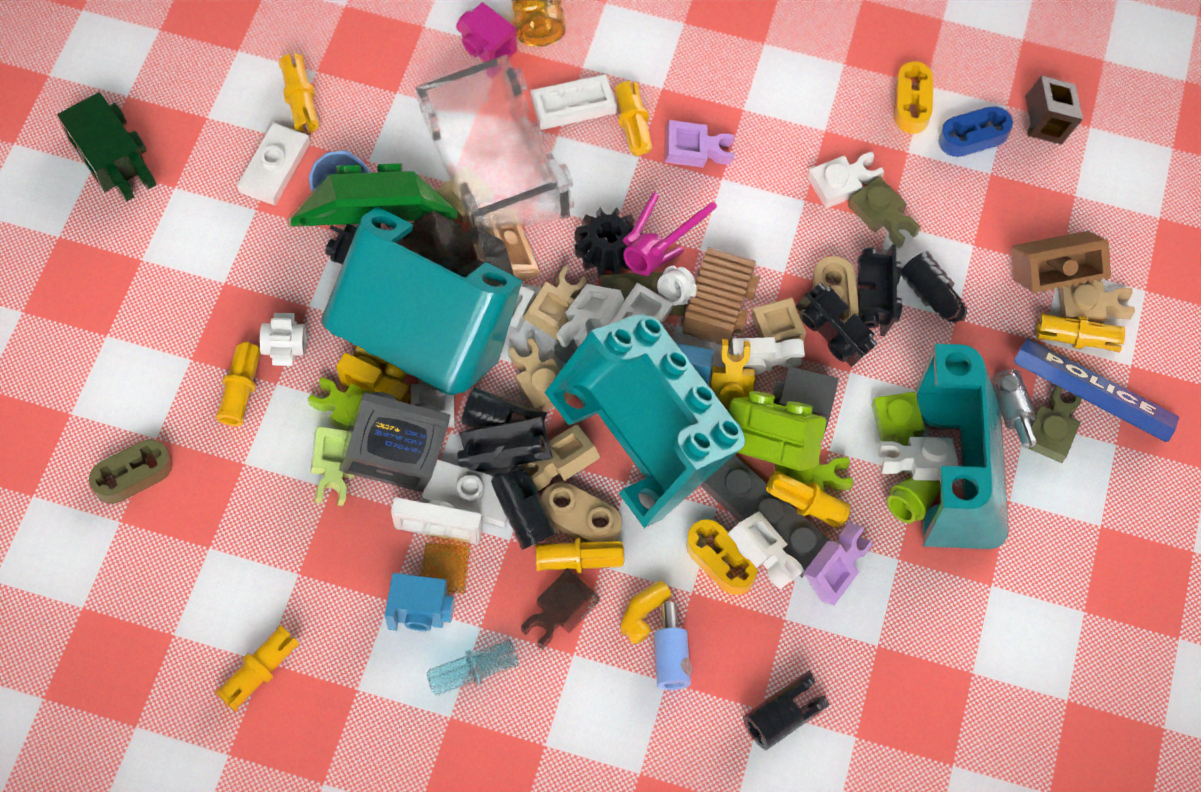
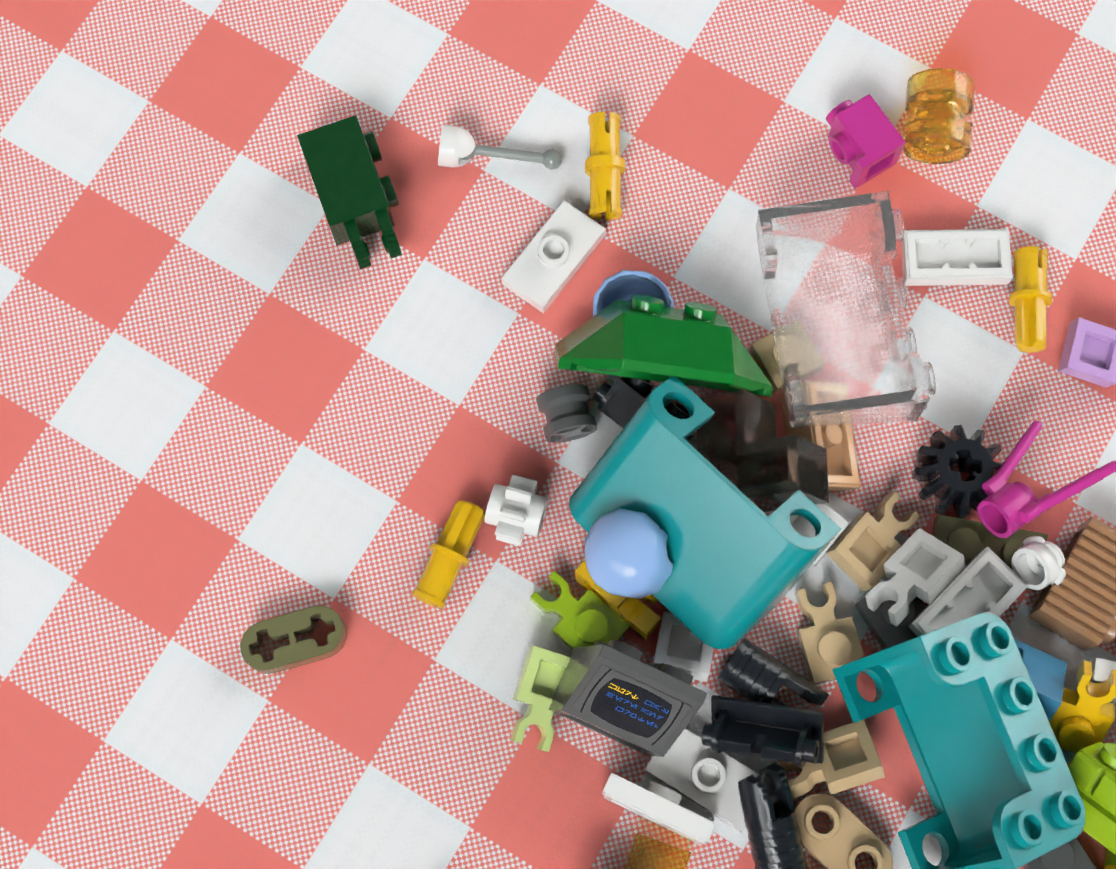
camera: 20 degrees right, 10 degrees up
(184, 102) = (458, 148): none -> hinge
(307, 266) = (566, 413): none -> dark grey wheel
(371, 338) = (627, 554): none -> light blue hair

